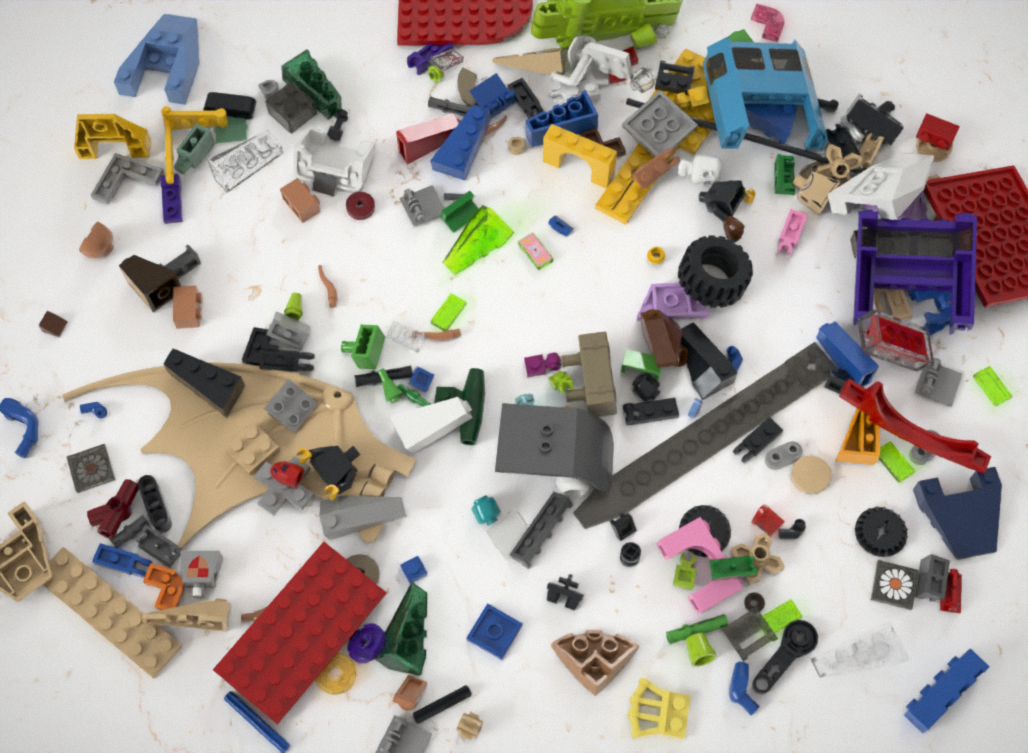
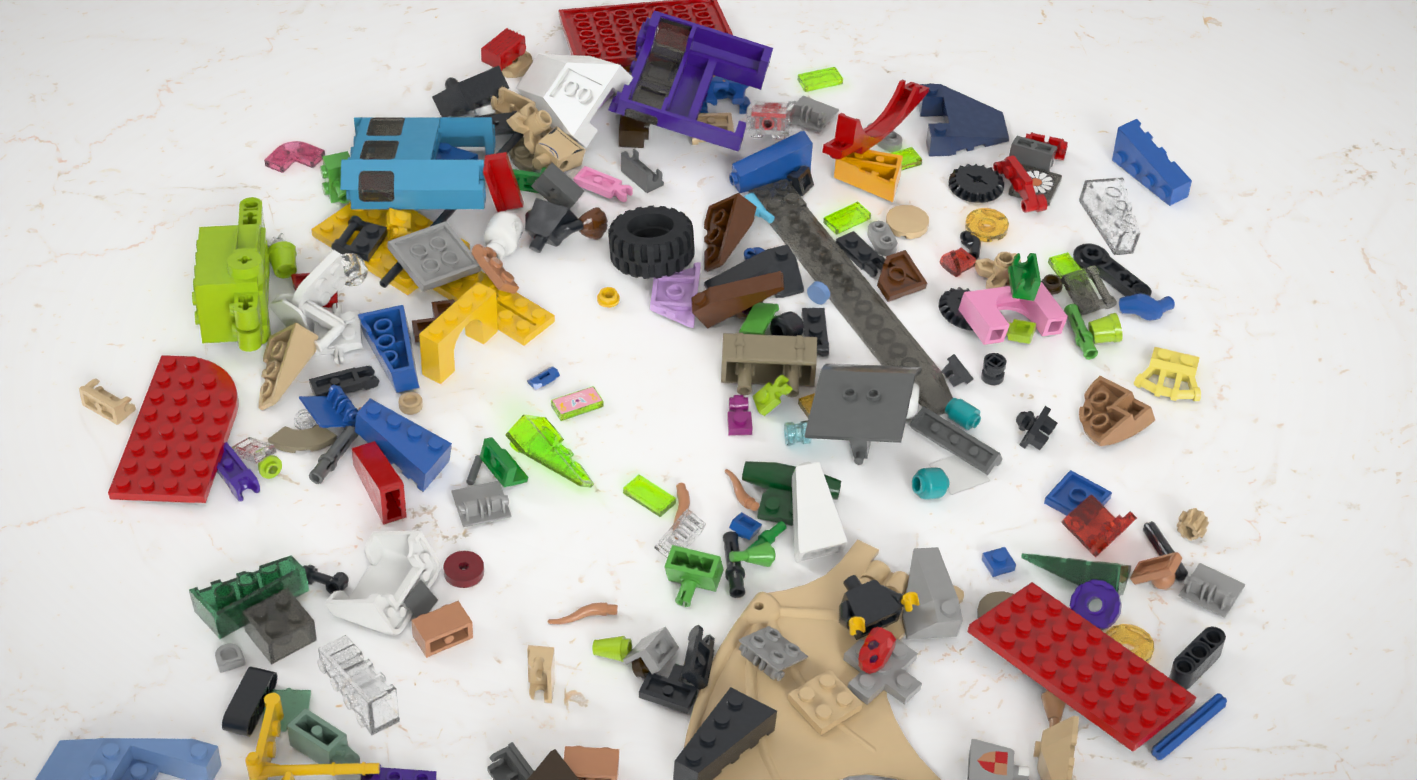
camera: 85 degrees left, 20 degrees down
(257, 264) = (541, 671): none -> tan hinge
(318, 718) = (1198, 657): none -> black beam
(455, 376) = (743, 498): none -> nougat animal
(455, 643) = (1096, 525): none -> clear red bracket
(571, 532) = (963, 413): none -> teal brick
(730, 470) = (900, 277): none -> reddish brown plate
(748, 152) = (502, 182): none -> red panel
(766, 331) = (726, 226): none -> reddish brown wedge
(768, 197) = (557, 187): none -> dark grey hinge
(793, 345) = (760, 210): none -> medium azure cone
(802, 424) = (847, 218): none -> clear neon green tile
(816, 258) = (640, 173): none -> dark grey hinge
(827, 532) = (998, 224): none -> clear yellow tile
(878, 566) = (1021, 183): none -> red plate

